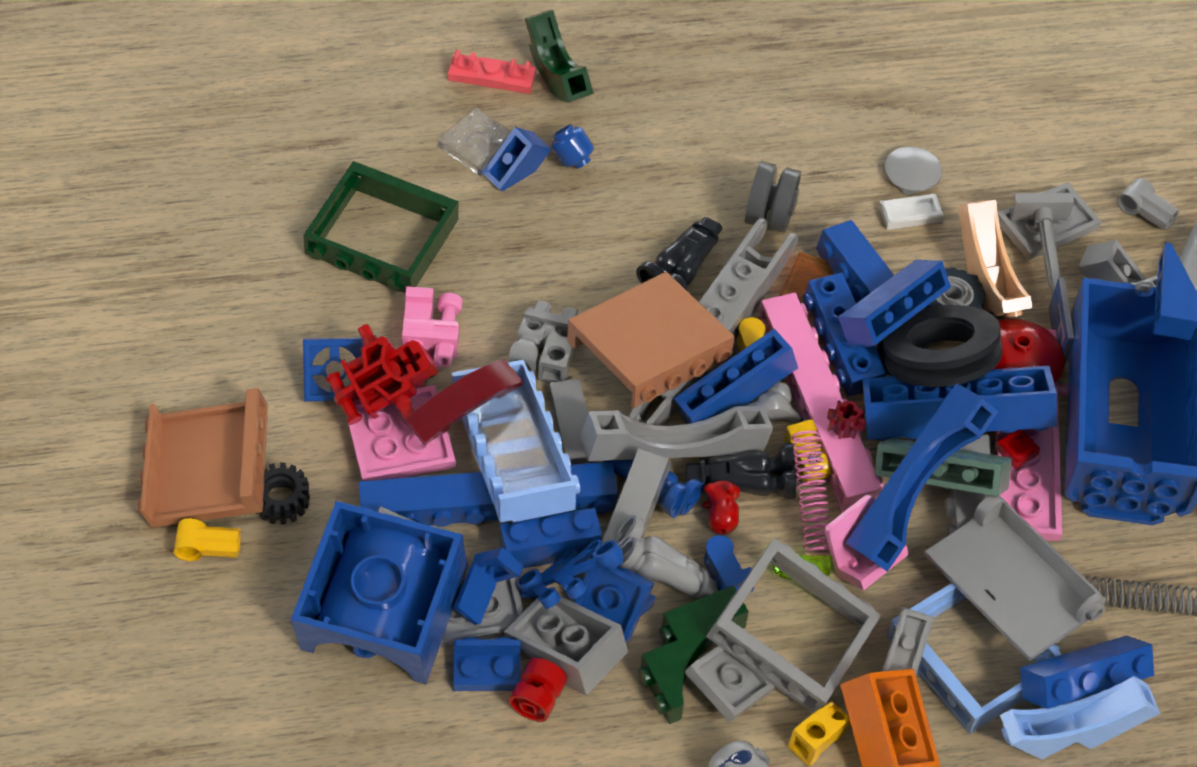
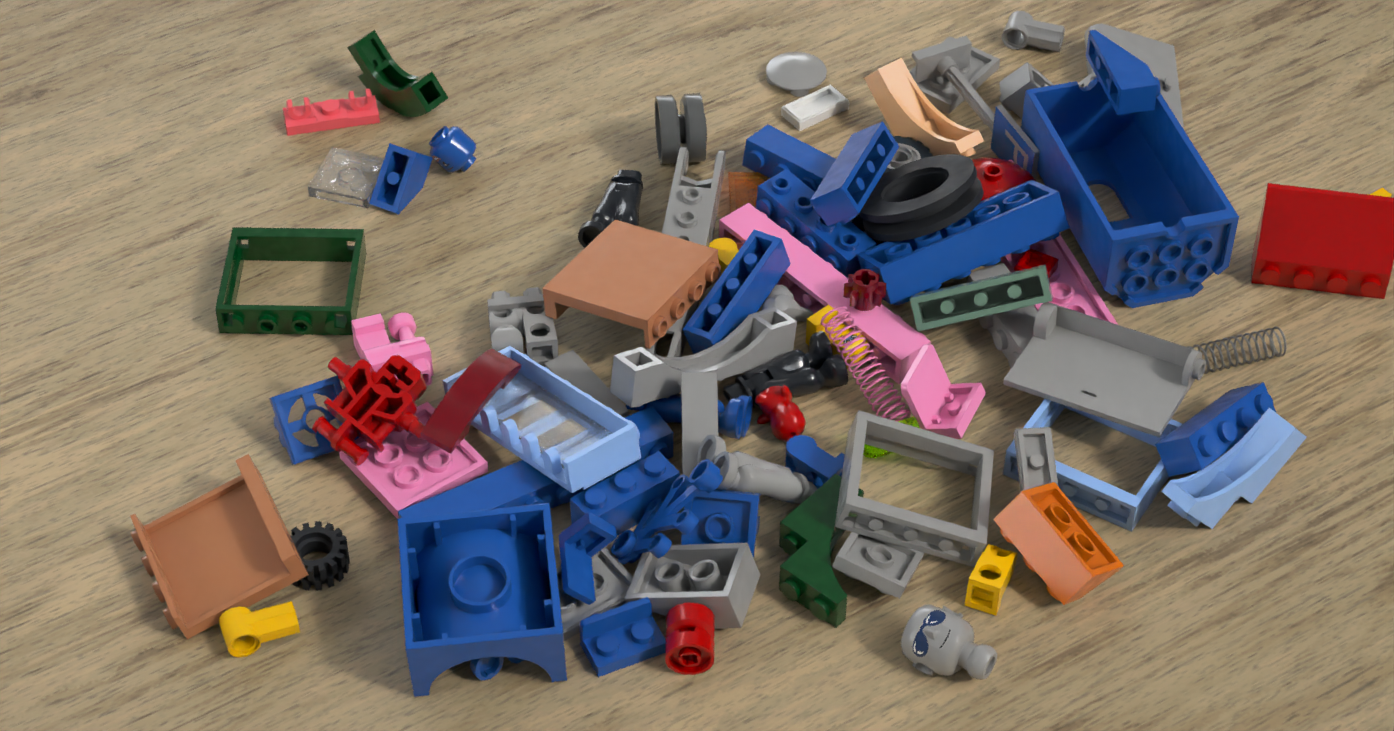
camera: 20 degrees left, 10 degrees down
(956, 423) = (985, 241): blue arch -> none

